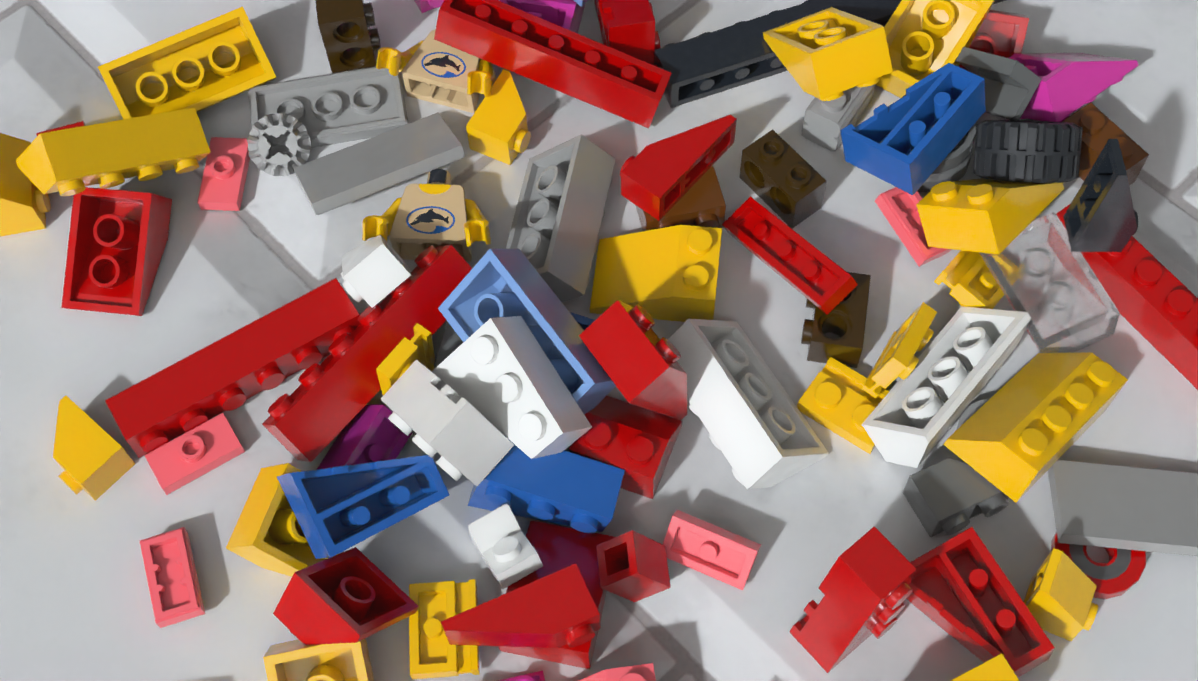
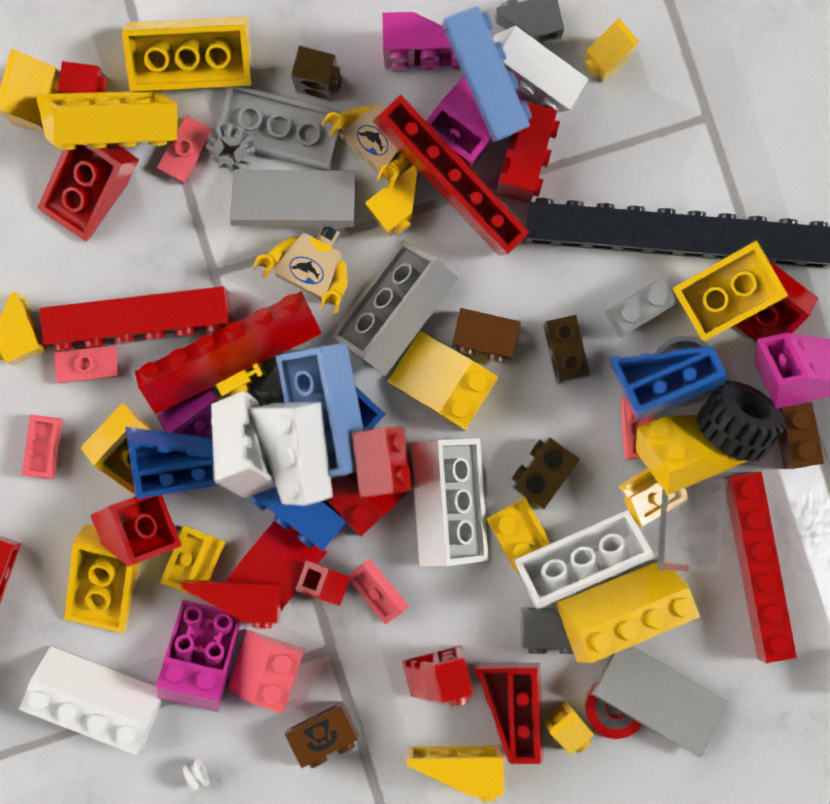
camera: 25 degrees right, 25 degrees up
(373, 271) = (248, 298): white slope -> none
(504, 546) = (249, 534): white slope -> none
(673, 165) = (484, 316): red slope -> none
(790, 255) = (533, 416): red plate -> none
(831, 52) = (647, 275): yellow slope -> none
(898, 354) = (567, 522): yellow plate -> none
(1007, 82) = (751, 360): dark grey panel -> none
(1103, 209) = (749, 506): black slope -> none

